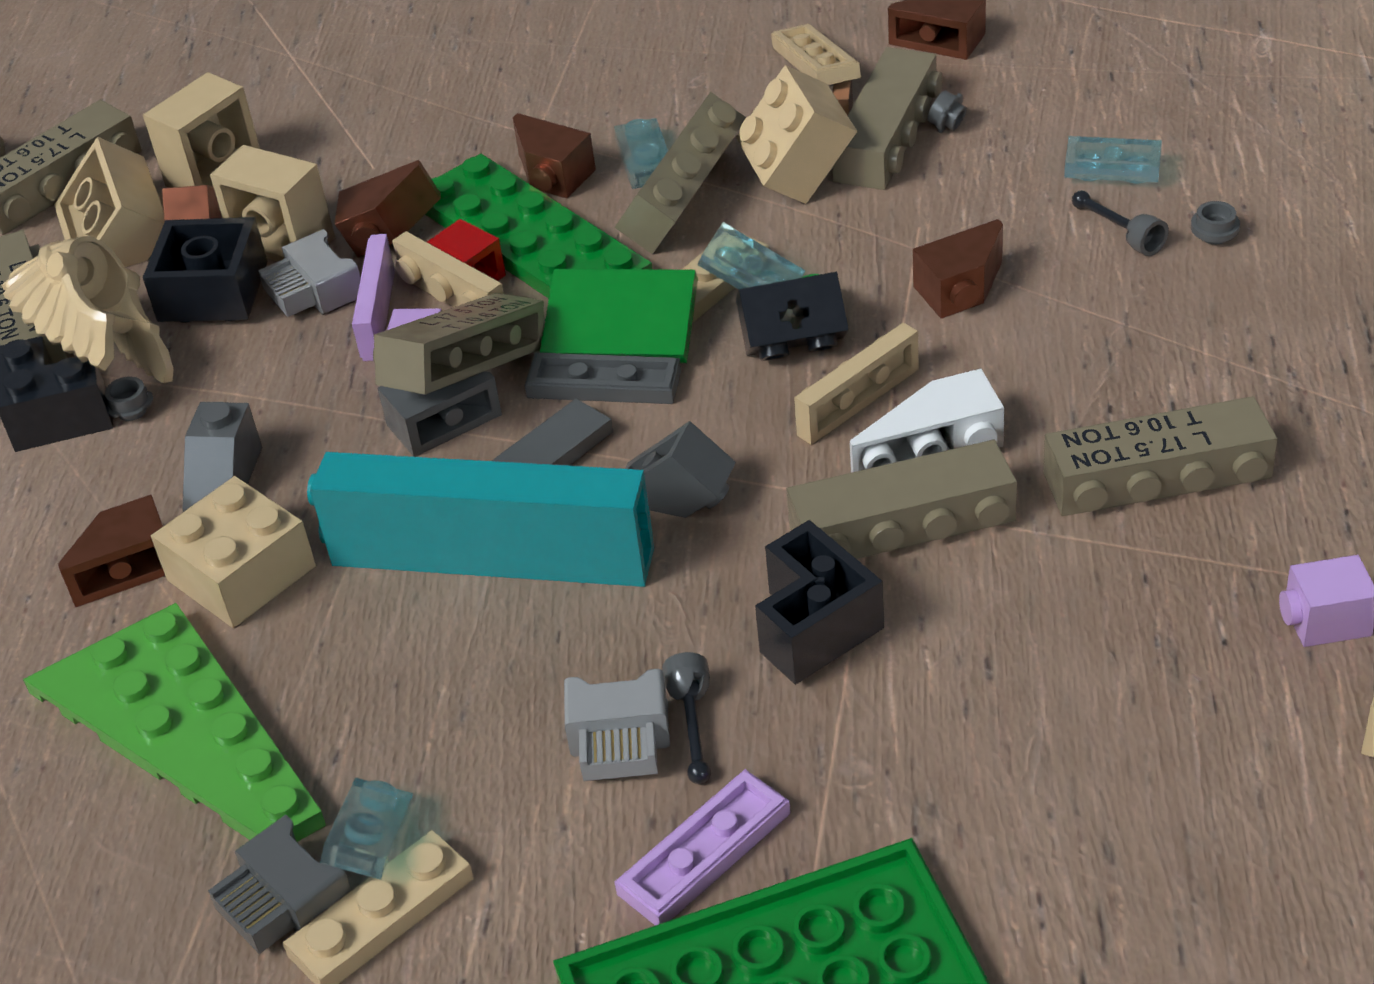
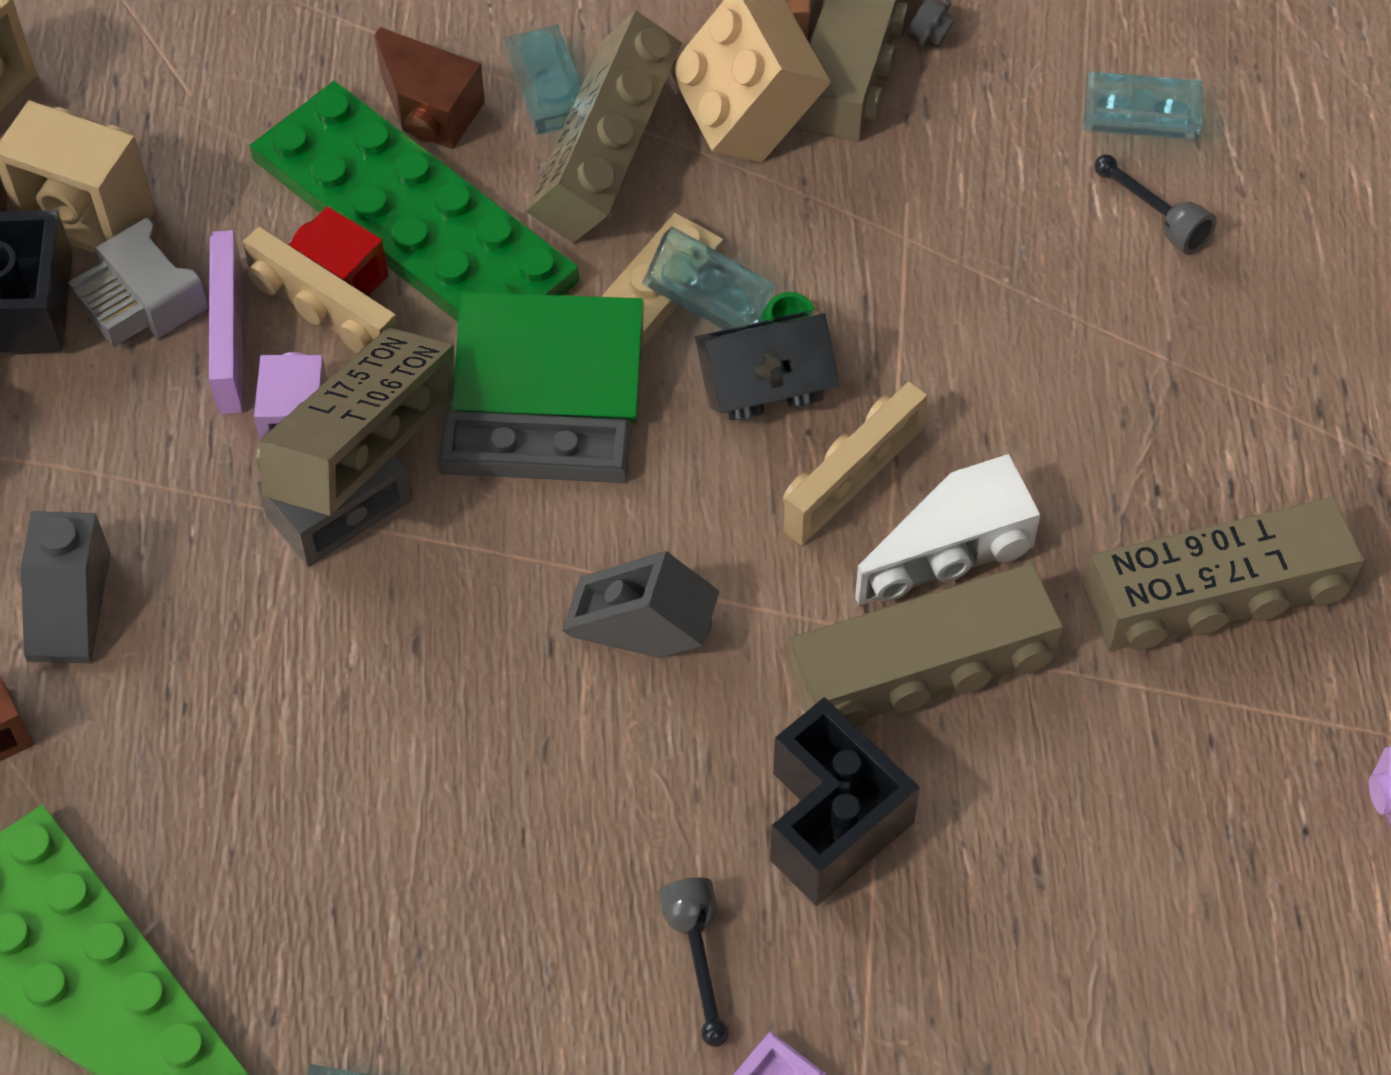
camera: 10 degrees left, 15 degrees up
(234, 551) = (106, 729): tan brick -> none
(385, 205) = (221, 180): copper slope -> none
(484, 518) = (417, 687): teal brick -> none
(561, 437) = (469, 571): dark grey tile -> none
(617, 725) = (614, 977): light grey piece -> none
(959, 268) = (964, 284): copper slope -> none
(1215, 222) = (1271, 209): dark grey plate -> none

